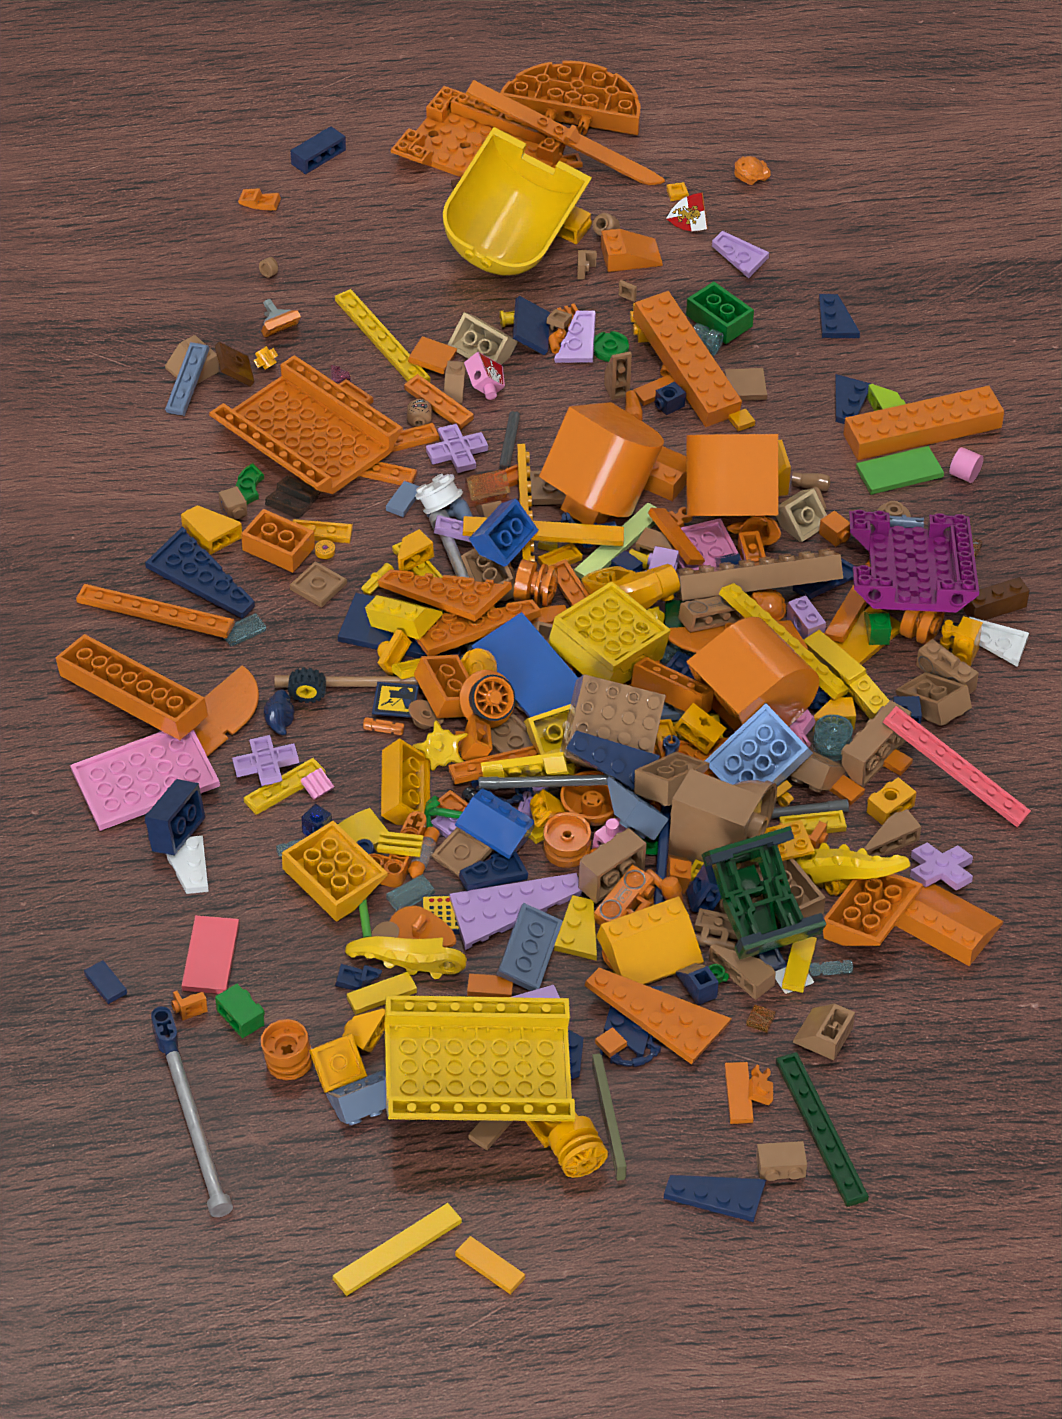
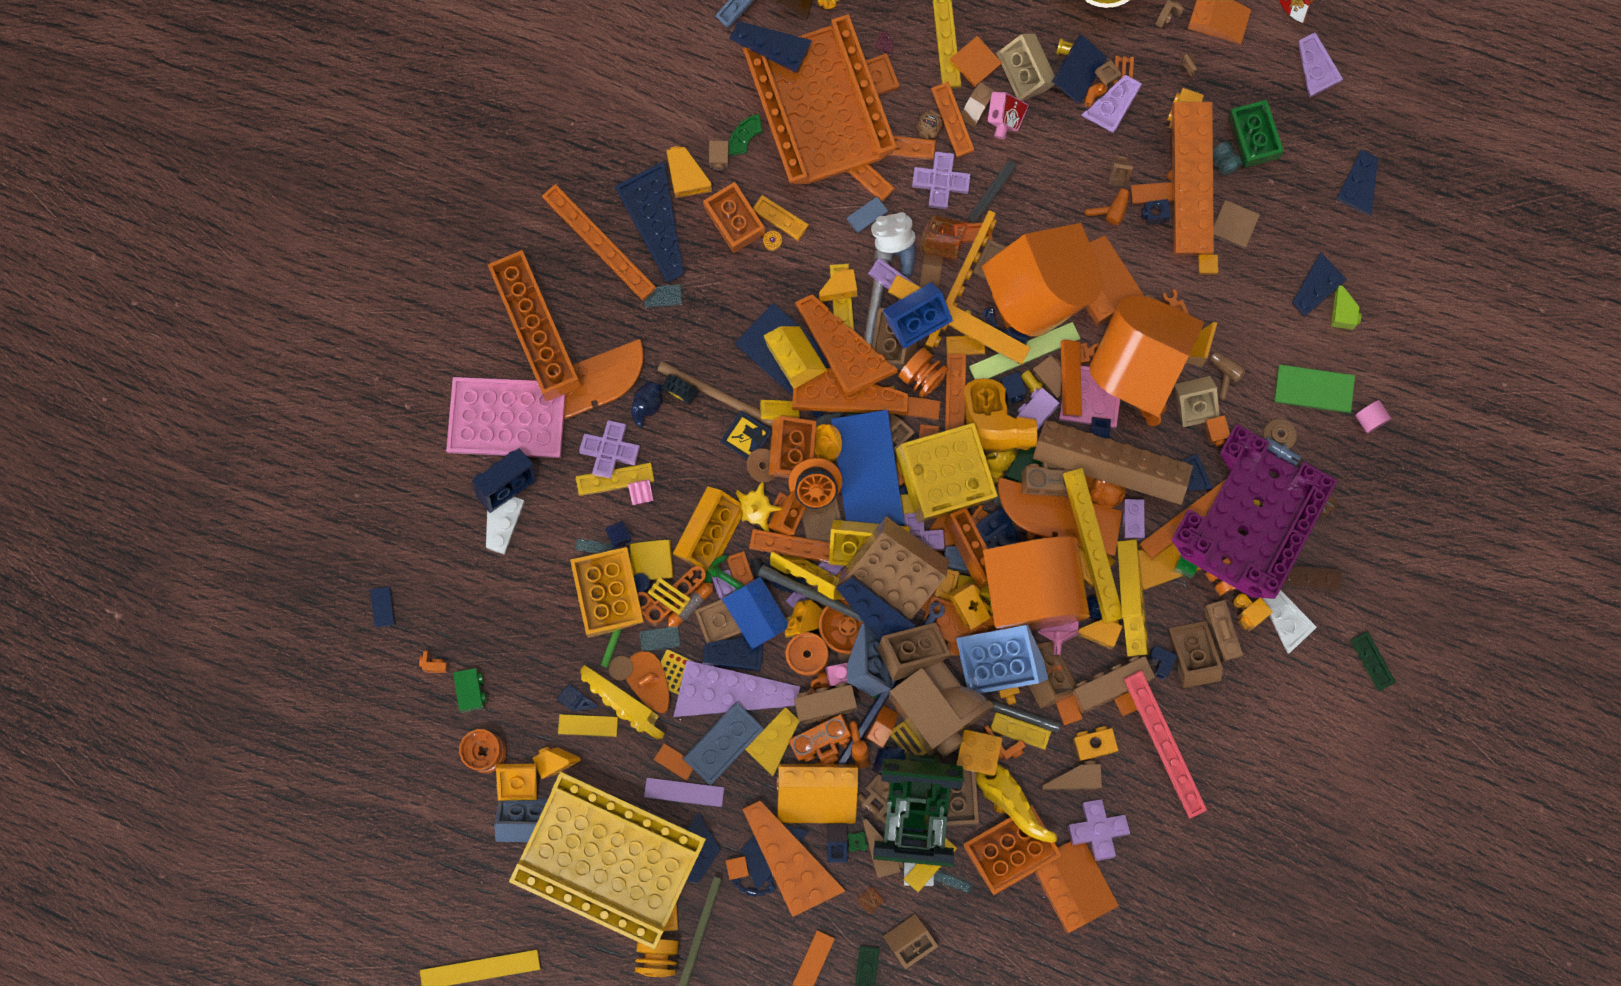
camera: 30 degrees right, 30 degrees up
(163, 1025) = (367, 862): flat silver piece -> none
(210, 954) = (475, 621): coral tile -> none
(241, 400) = (772, 44): none -> dark blue wing
(292, 497) = (769, 170): clear smoke slope -> none
(318, 584) = (748, 276): medium nougat tile -> none
(372, 584) = (790, 300): yellow axle -> none
(383, 726) = (724, 457): orange axle -> none
(392, 651) = (768, 385): light orange tile -> none
(610, 344) = (1140, 122): green tile -> none
(750, 546) = (1127, 425): orange brick -> none
(759, 1088) = (831, 968): orange plate -> none
(831, 735) = (1091, 649): clear light blue wheel -> none
(923, 422) = (1365, 349): orange brick -> none

